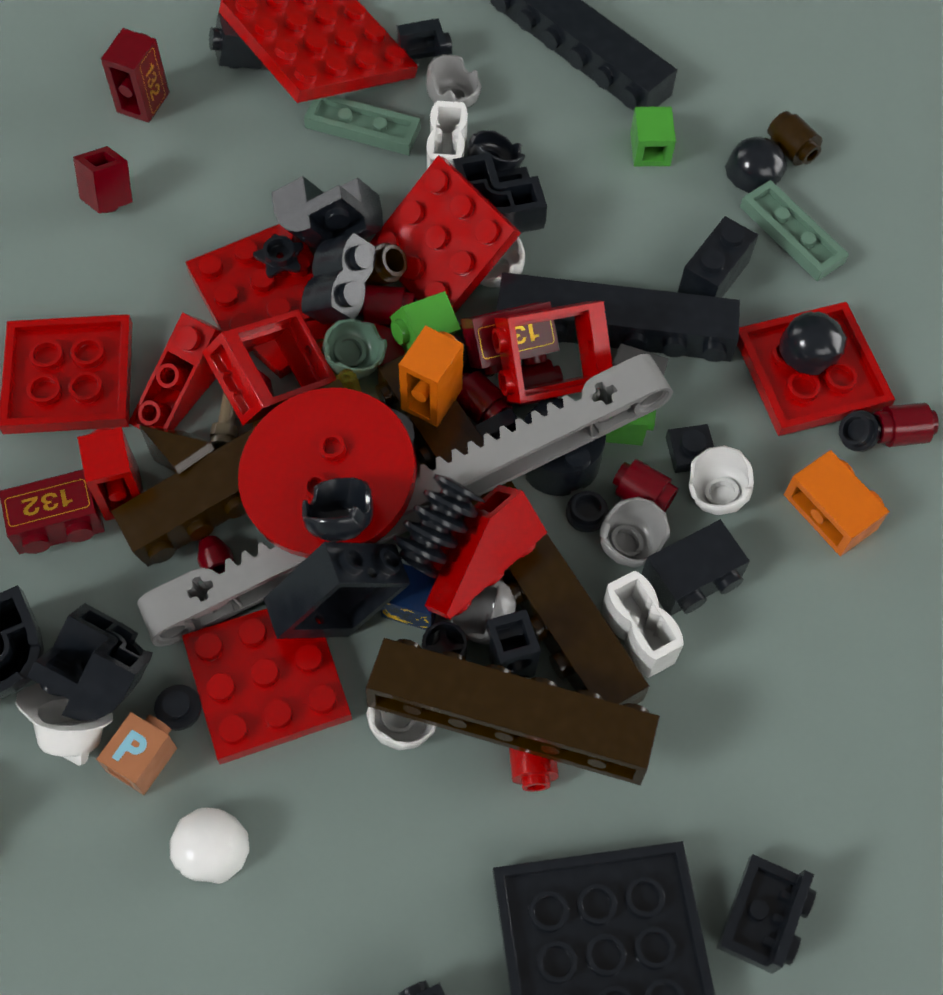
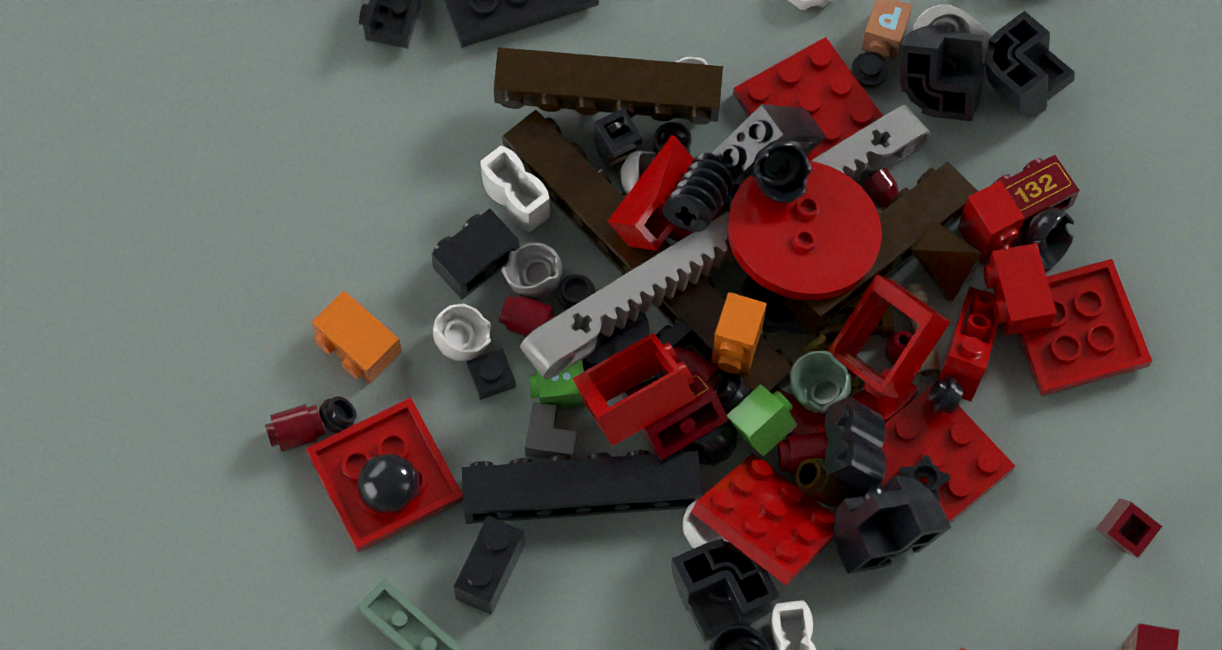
camera: 170 degrees right, 5 degrees up
(54, 458) = (1050, 233): none -> black hair
(112, 392) = (1020, 289): none -> red brick
(230, 311) = (945, 395): none -> black plate

